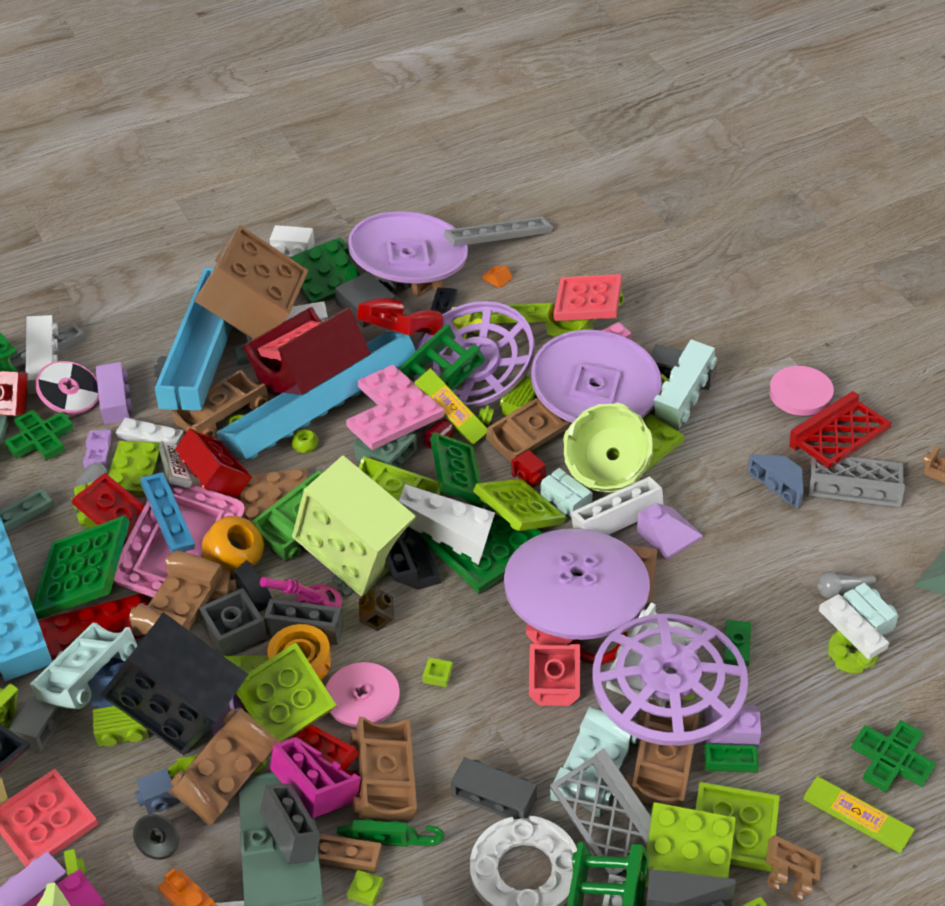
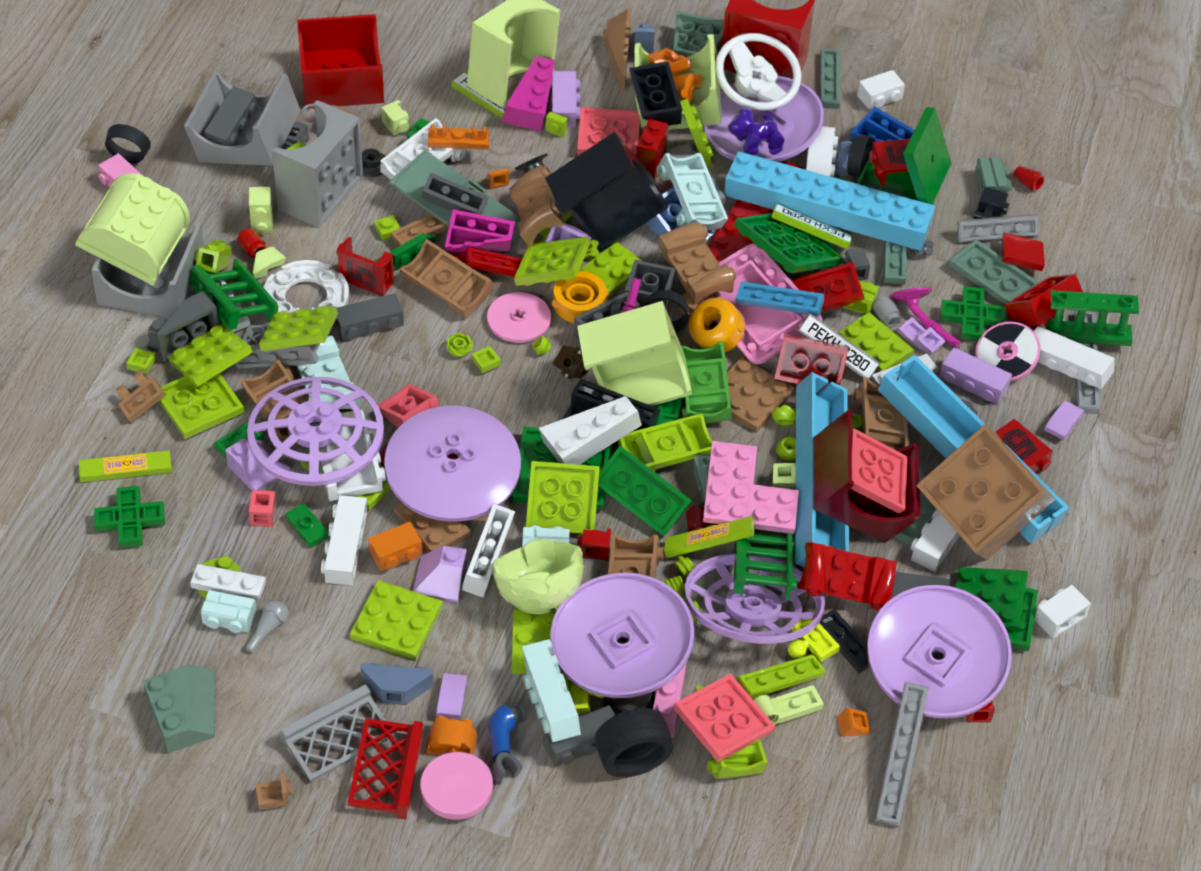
camera: 130 degrees right, 5 degrees up
(36, 577) = (812, 226): none -> tile
(53, 526) = (860, 261): none -> dark grey brick
(53, 740) = (652, 145): none -> red brick
(66, 465) = (911, 298): none -> dark pink dish
(111, 330) = (1064, 420): none -> lavender slope
(162, 331) = (1026, 446): none -> red panel
(201, 855) = (498, 178): none -> orange slope
(276, 459) = (784, 415): none -> lime plate
(337, 417) = (784, 475): none -> yellowish green brick
(383, 650) = (541, 345): none -> lime plate
(442, 696) = (459, 345): none -> lime plate
(442, 813) = (363, 272): none -> red panel
(514, 296) = (790, 705): none -> yellowish green plate
(588, 789) = (298, 328): none -> lime plate
(673, 307) = (633, 742): none -> black tyre
(686, 564) = (395, 546): none -> orange brick
(724, 596) = (345, 540): none -> white brick
(734, 525) = (396, 620): none -> lime plate
(736, 403) = (499, 728): none -> piece
(744, 446) = (452, 696): none -> lavender slope
(766, 675) = (262, 508): none -> coral brick
(776, 422) = (451, 736): none -> orange cylinder

